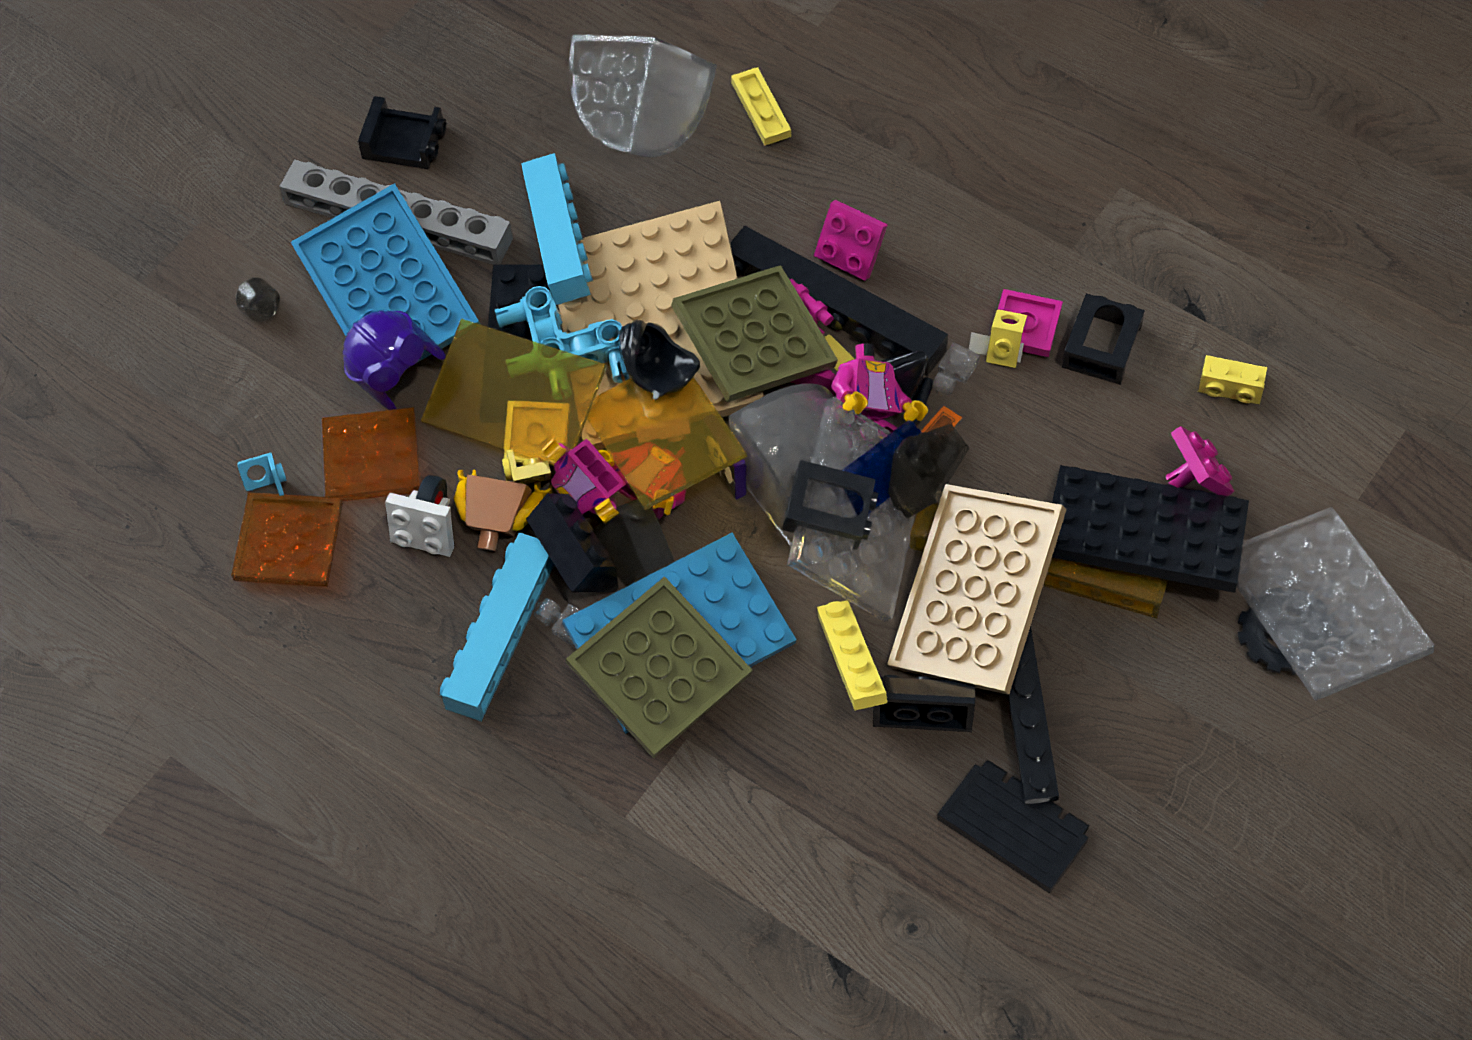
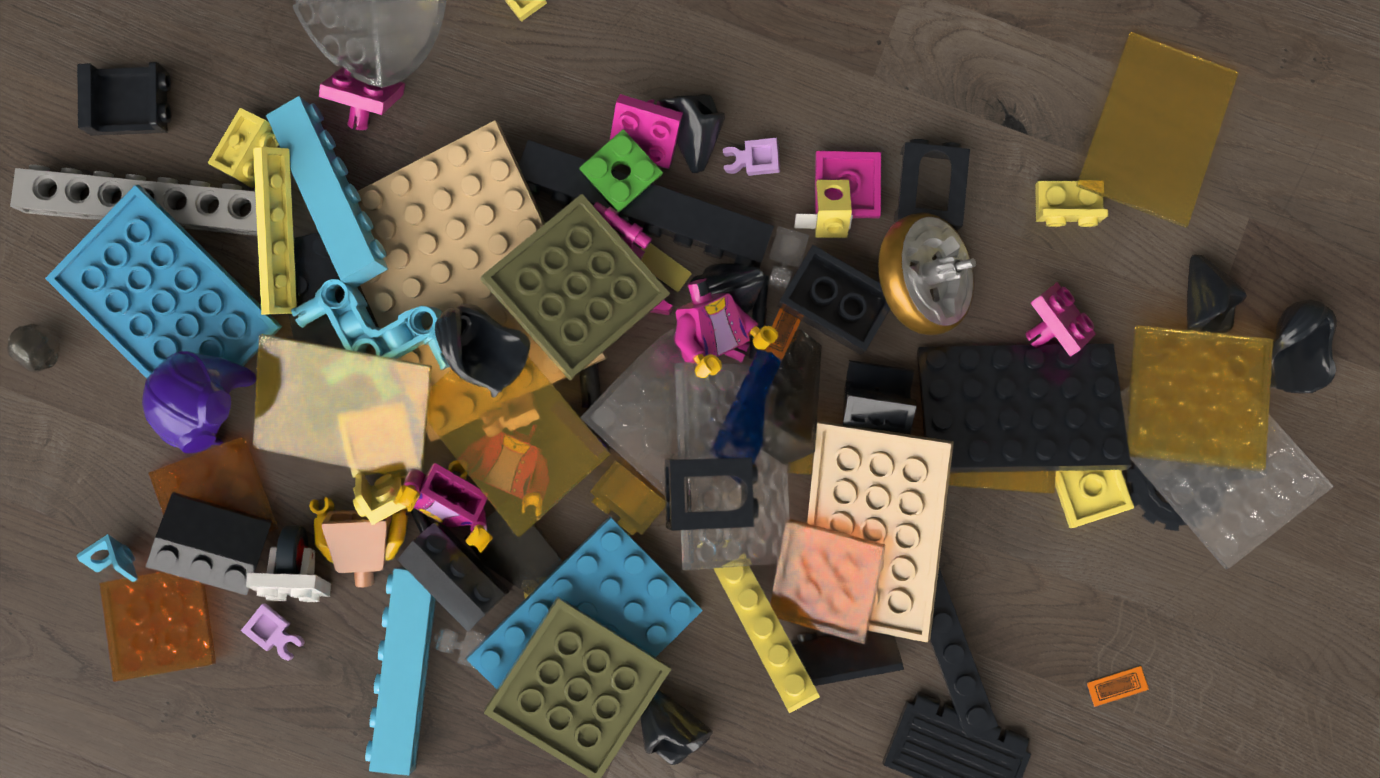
camera: 20 degrees left, 25 degrees up
(359, 472) = (208, 543): none -> black slope
(388, 566) = (268, 629): none -> lavender plate
(495, 189) = (235, 150): none -> light yellow bracket
(501, 245) = (275, 230): none -> light yellow plate
(609, 164) = (359, 96): none -> dark pink plate
(739, 735) = (671, 730): none -> black hat
(753, 520) = (627, 497): none -> clear yellow brick
(825, 247) = (618, 151): none -> bright green piece
(898, 250) = (698, 127): none -> black hat
(922, 622) = (827, 580): none -> clear orange plate
(947, 286) = (758, 157): none -> lavender plate
(991, 406) = (836, 300): none -> black brick
(1008, 480) = (889, 403): none -> black panel
(1092, 388) = (908, 287): none -> flat silver wheel
(1191, 802) = (1117, 686): none -> sticker
(1201, 620) = (1092, 495): none -> light yellow tile
(1318, 550) = (1199, 397): none -> clear yellow plate
(1328, 337) = (1157, 129): none -> clear yellow piece
(1352, 483) = (1211, 297): none -> black hat
(1432, 538) = (1304, 348): none -> black piece

